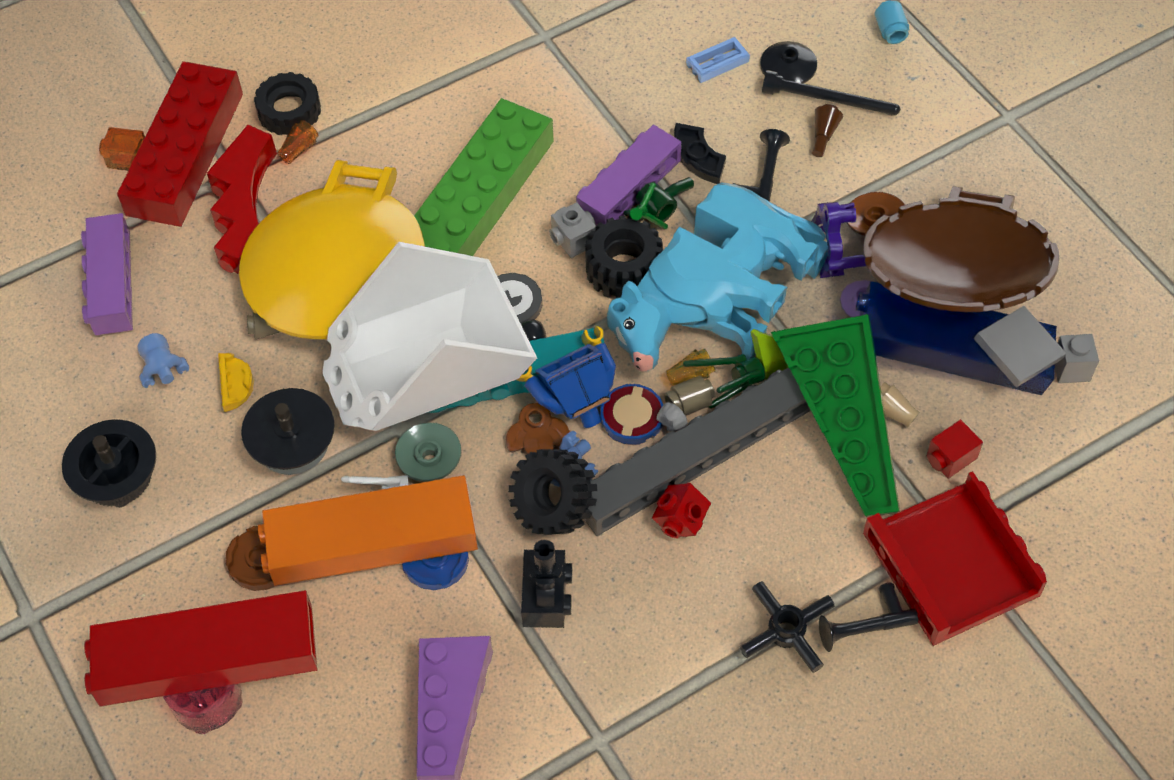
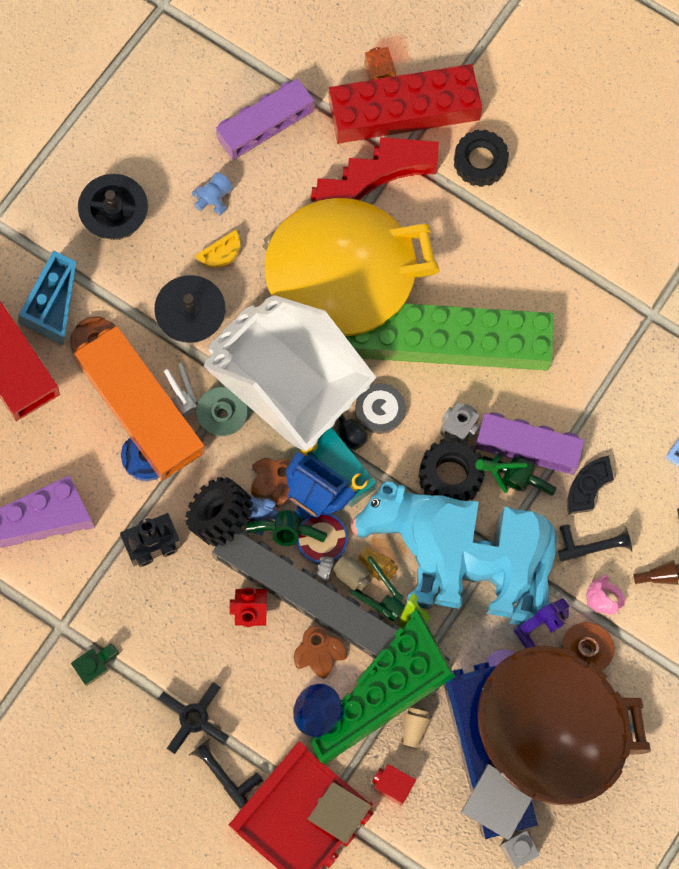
camera: 60 degrees right, 15 degrees up
(178, 575) = (50, 299): none -> dark azure wedge
(299, 140) = (448, 184): clear orange cone -> none
(608, 434) = (286, 528): none -> dark green piece
(667, 719) = (92, 665): none -> dark green plate
(767, 467) = (319, 656): none -> dark orange plate
(827, 183) = (599, 601): none -> bright pink piece
(836, 489) = (317, 710): none -> clear blue dish
(968, 511) = (339, 812): none -> dark tan piece

